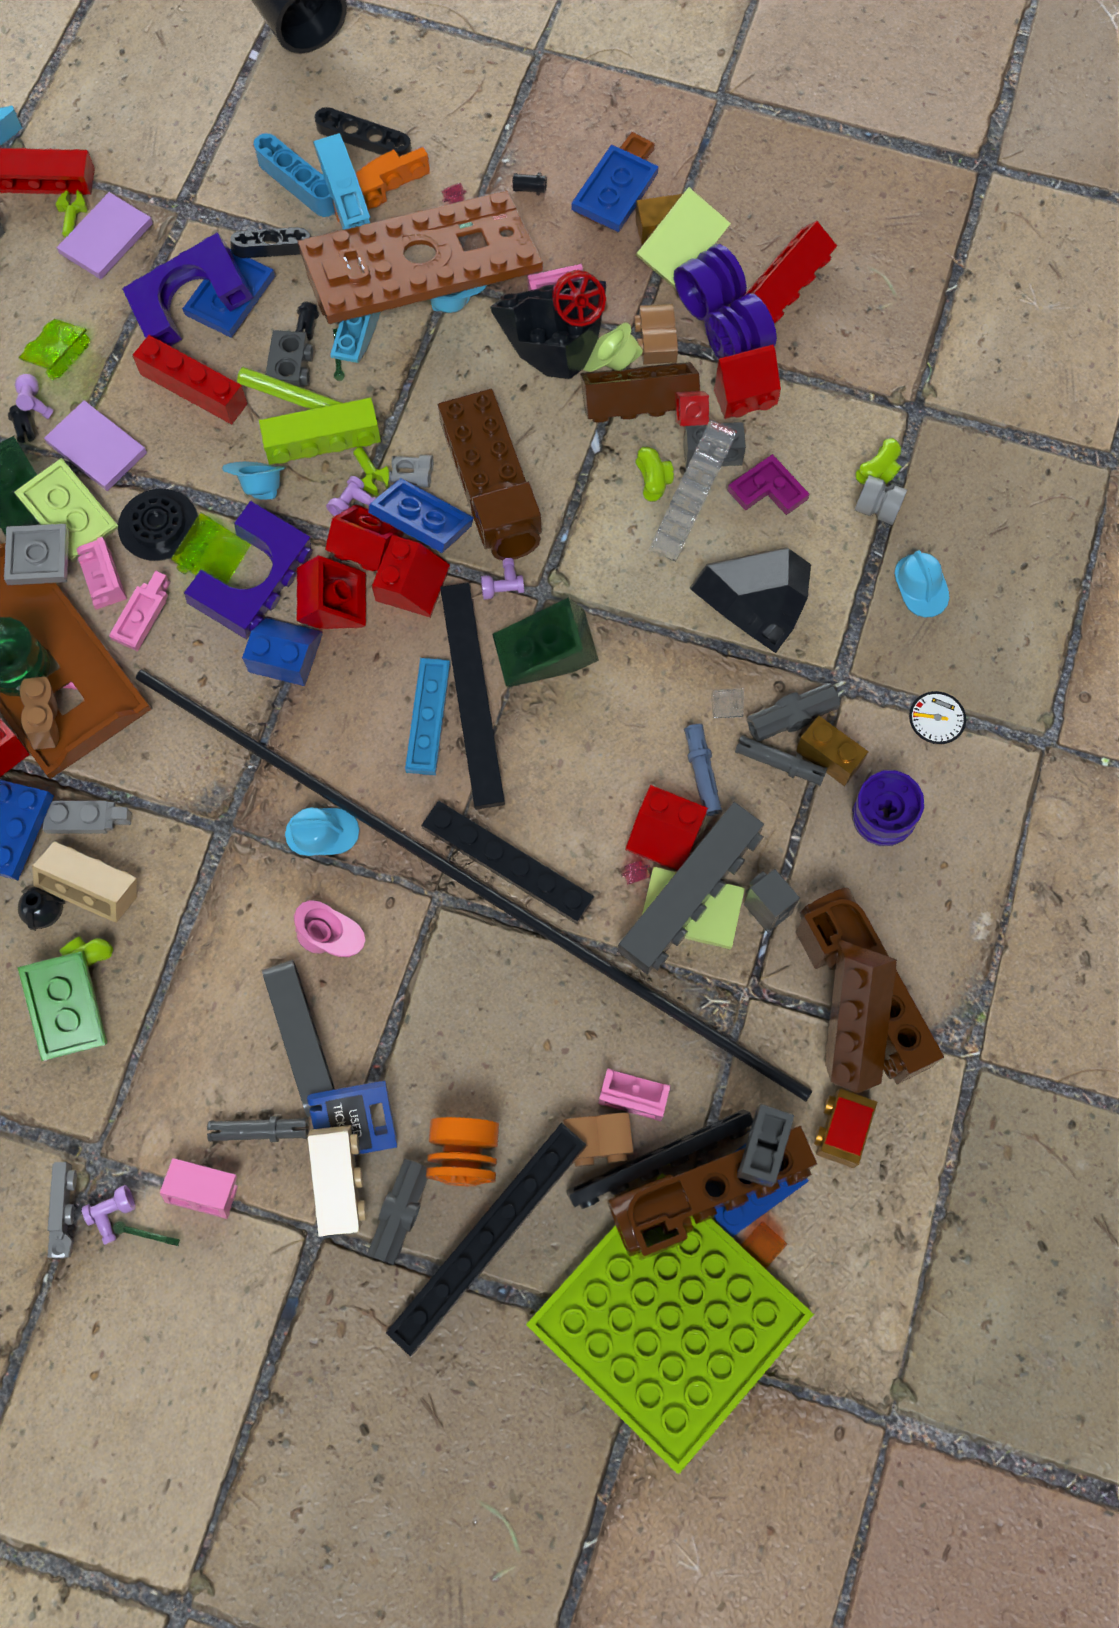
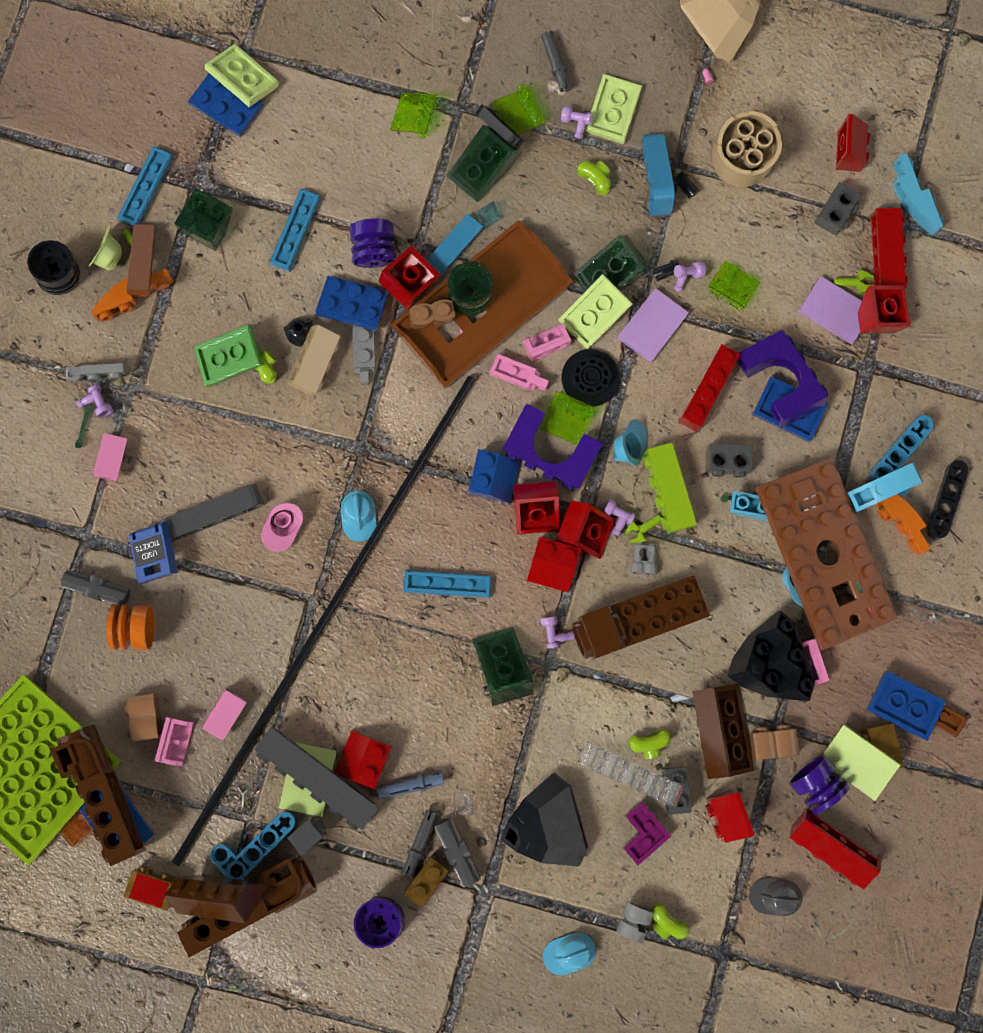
camera: 80 degrees right, 10 degrees up
(36, 554) = (554, 296): light grey plate -> none
(113, 174) = (883, 310): none -> red slope
(251, 242) = (840, 428): black beam -> none
(258, 1129) = (149, 492): dark grey pin -> none
(283, 389) = (700, 464): lime axle -> none
(307, 315) = (774, 470): black pin -> none
(336, 1180) = (112, 545): brick -> none
(421, 515) = (603, 568): blue plate -> none
(454, 193) = (894, 575): clear pink plate -> none
(472, 696) = (464, 614): black tile -> none
(486, 1239) = (78, 647): black tile -> none
(508, 862) = (338, 647): black plate -> none
(530, 183) = (909, 636): black pin -> none
(579, 298) = (785, 679): red wheel -> none
(596, 1021) = (224, 714): none -> bright pink hinge
(614, 350) = (754, 708): yellowish green piece -> none
(636, 872) = (331, 738): clear pink plate -> none
(647, 1165) = (127, 753): black plate -> none
(692, 408) = (700, 771): red brick -> none
(740, 327) = (773, 805): dark purple wheel -> none
(765, 1146) = (114, 830): dark grey brick -> none
(779, 976) = (258, 843): none -> dark azure beam
(846, 347) = (775, 897): none -> dark grey piece
(937, 717) = (460, 963): white sticker -> none

